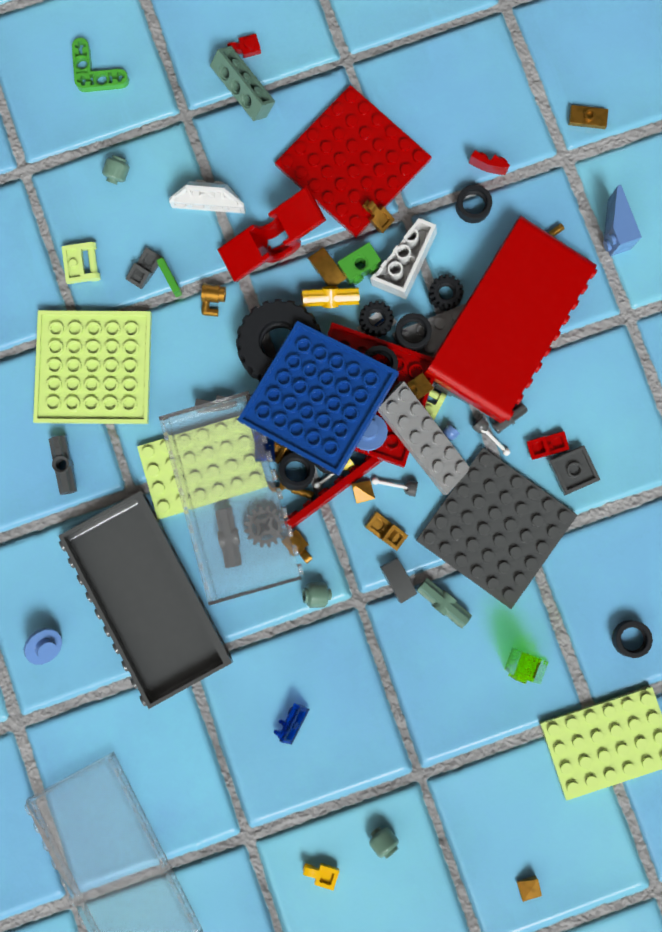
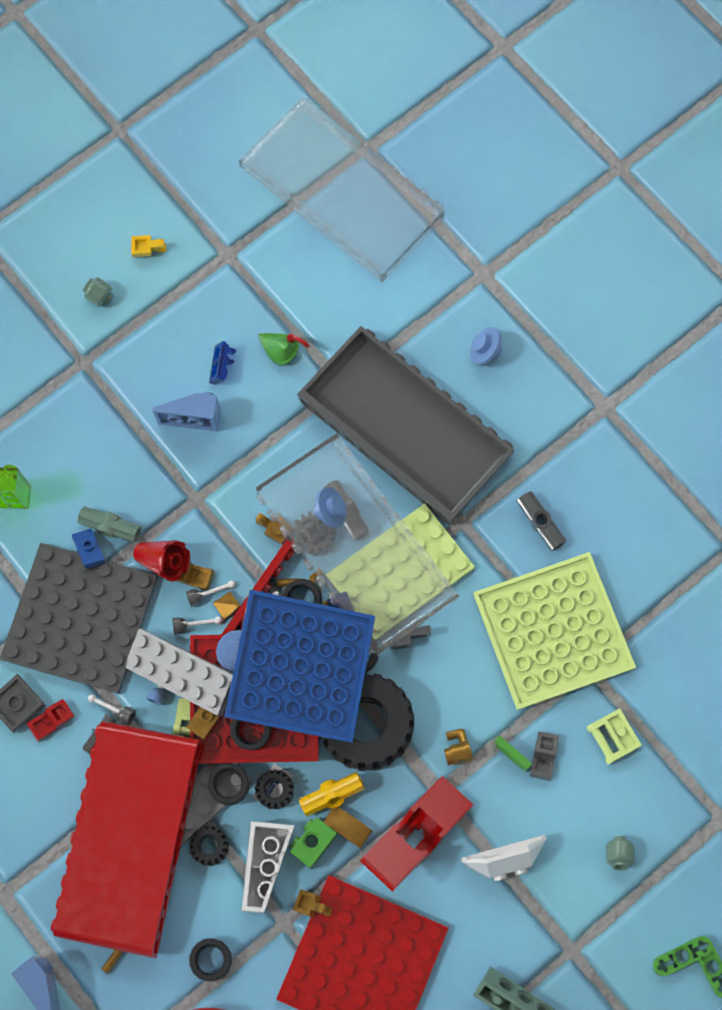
camera: 160 degrees right, 10 degrees down
(230, 719) = (281, 347): none -> bright green piece
(240, 531) = (330, 507): none -> medium blue piece
(316, 594) = (238, 487): sand green head -> none
(331, 680) = (192, 411): none -> medium blue slope
(388, 508) = (195, 596): none -> hinge
(398, 580) = (160, 528): dark grey slope -> none
(406, 549) = (163, 558): none -> red cone
(470, 586) = (88, 548): none -> blue plate

